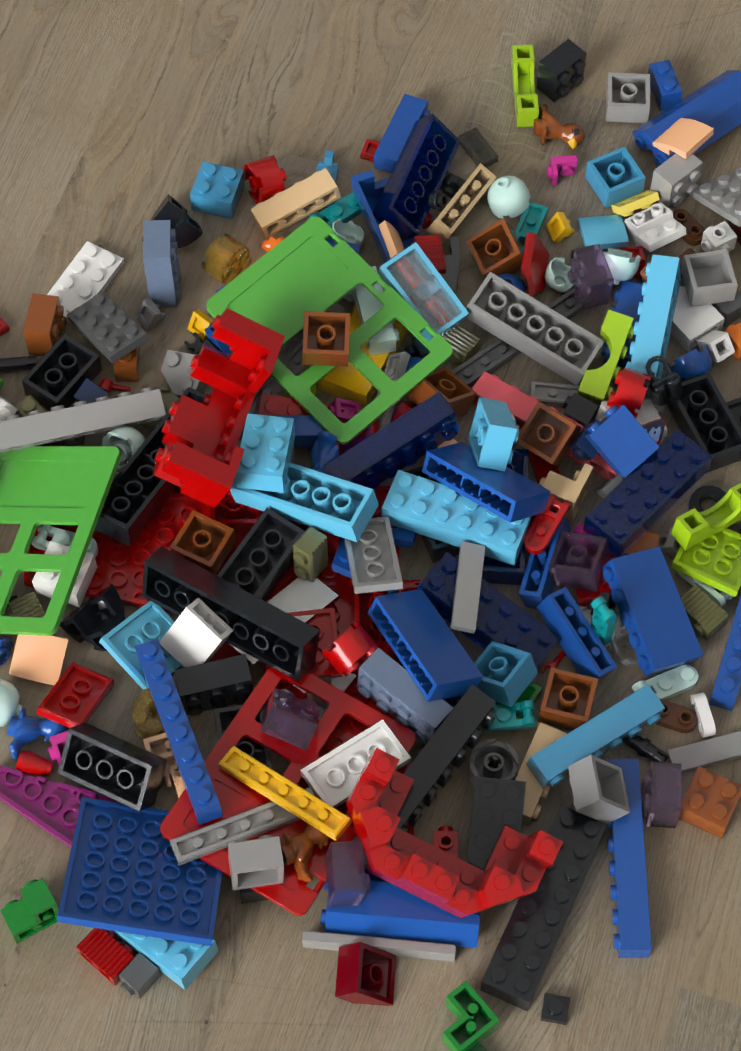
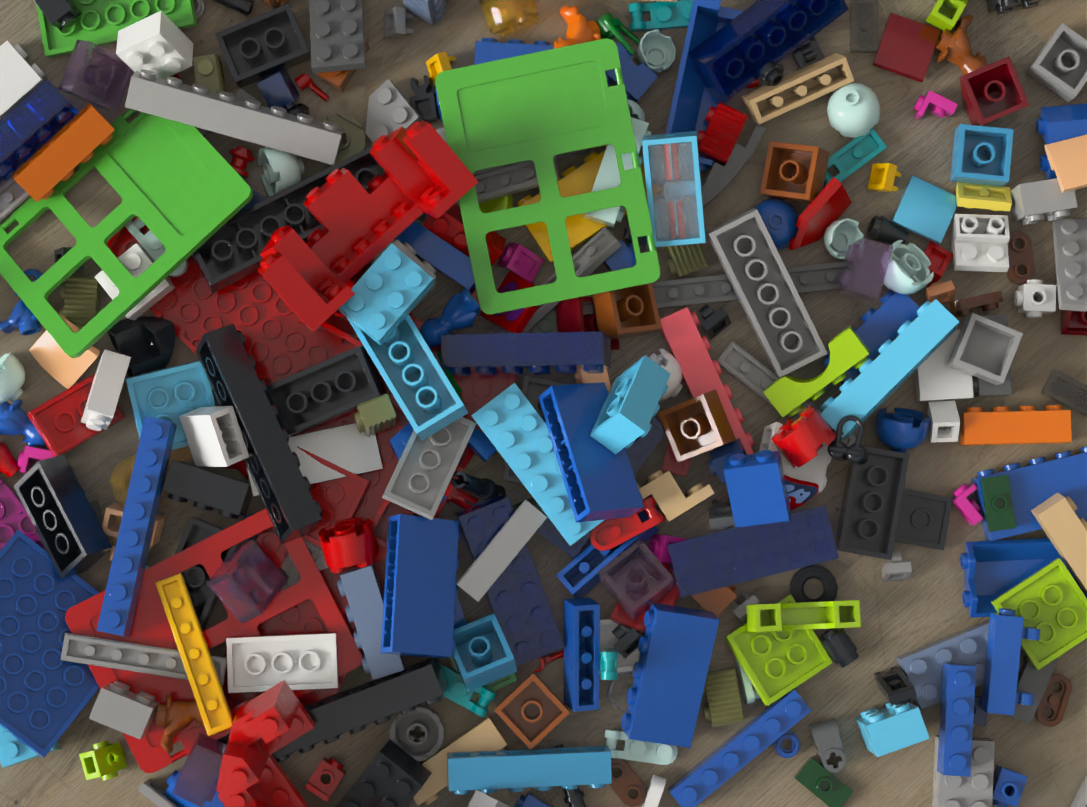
camera: 30 degrees right, 25 degrees up
(89, 657) = (105, 390): none -> white brick
(204, 541) = (281, 337): dark orange brick -> none
(259, 936) = (103, 760): none -> lime brick
(326, 338) = (529, 196): dark orange brick -> none
(391, 239) = (689, 104): light nougat slope -> none
(414, 560) = (483, 488): none -> black pin
(510, 373) = (714, 321): none -> black tile
(516, 146) = (906, 47): none -> dark red slope
(580, 409) = (755, 408): black brick -> none
(593, 135) = (992, 92): none -> dark red slope

